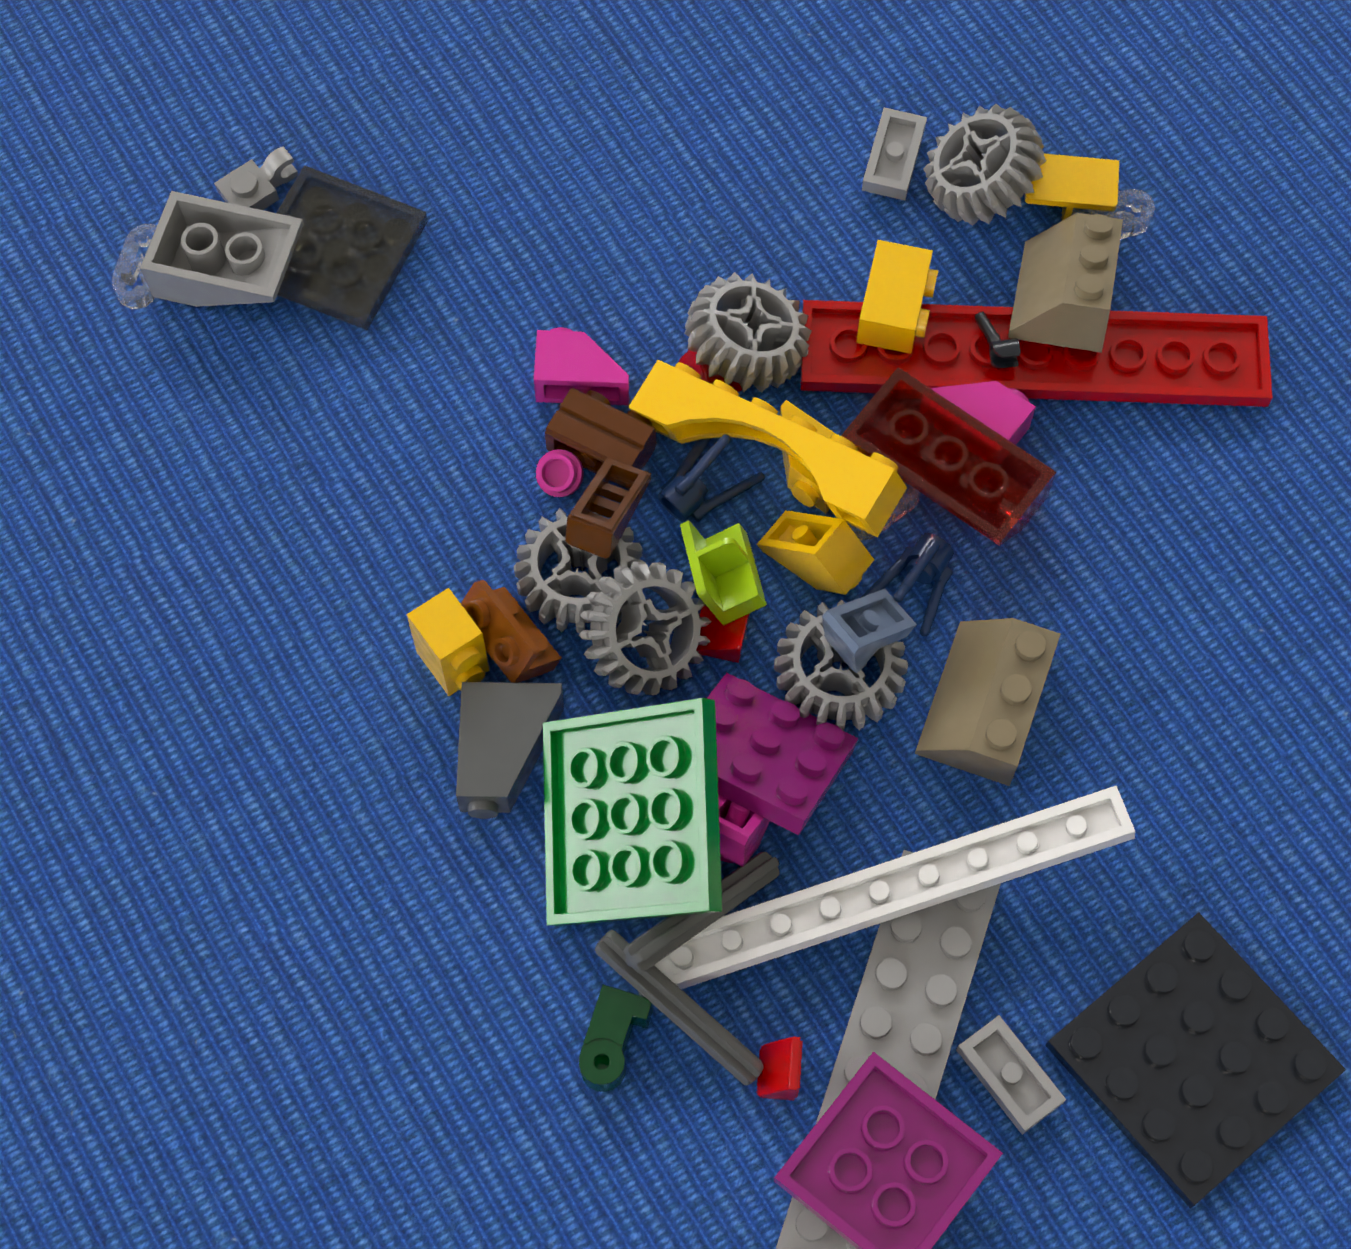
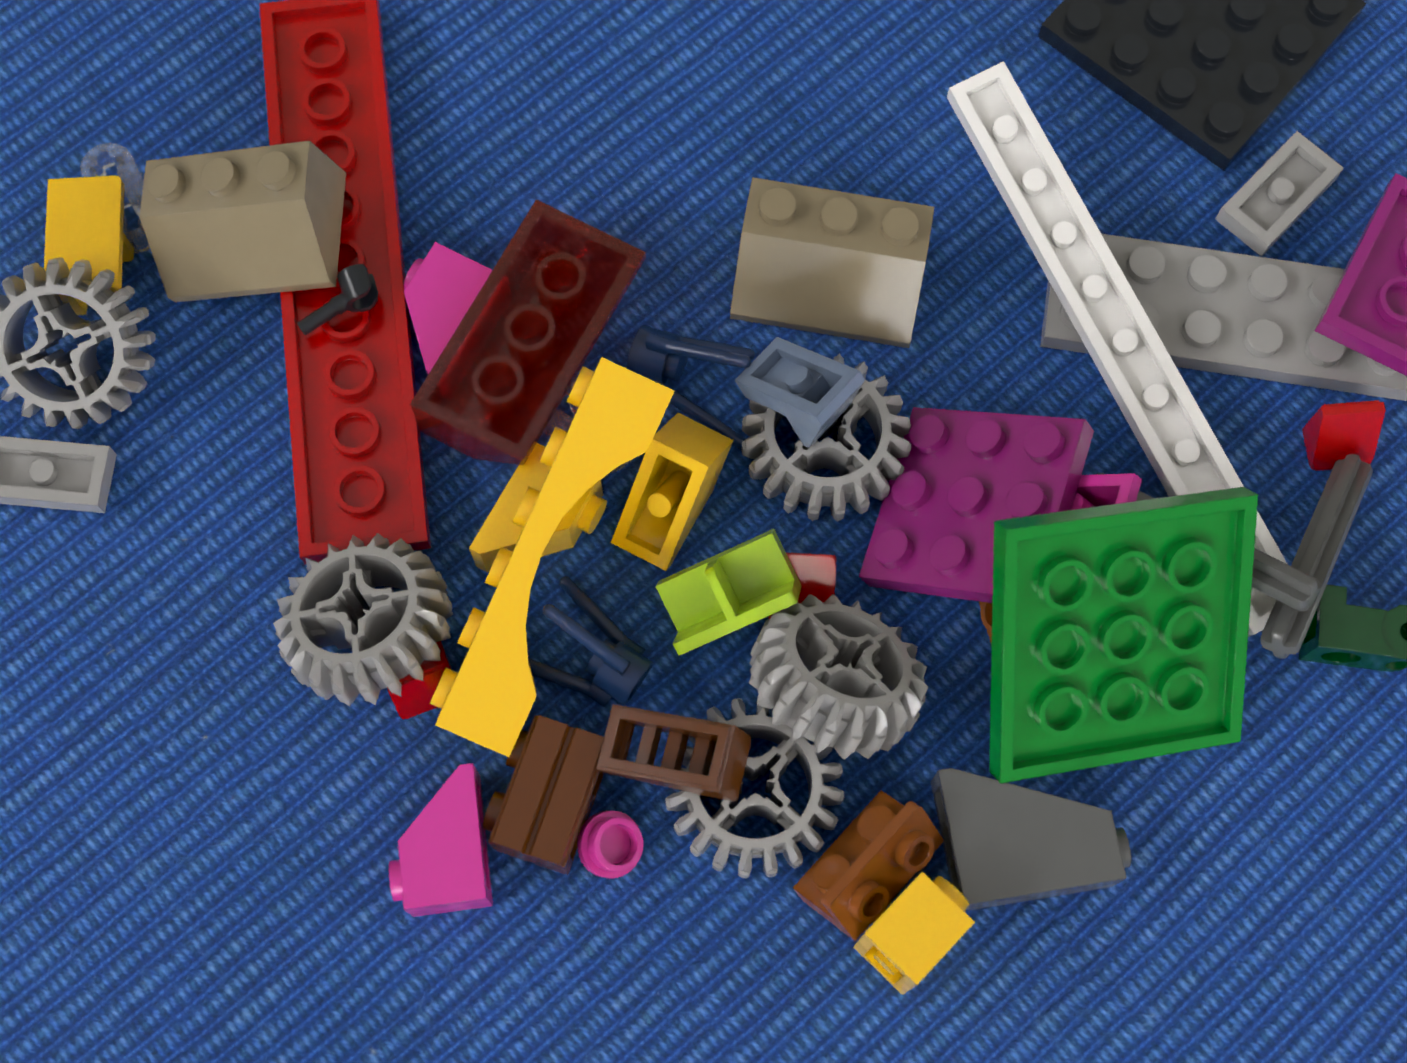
camera: 100 degrees left, 5 degrees up
(895, 295) = (292, 427): yellow brick -> none

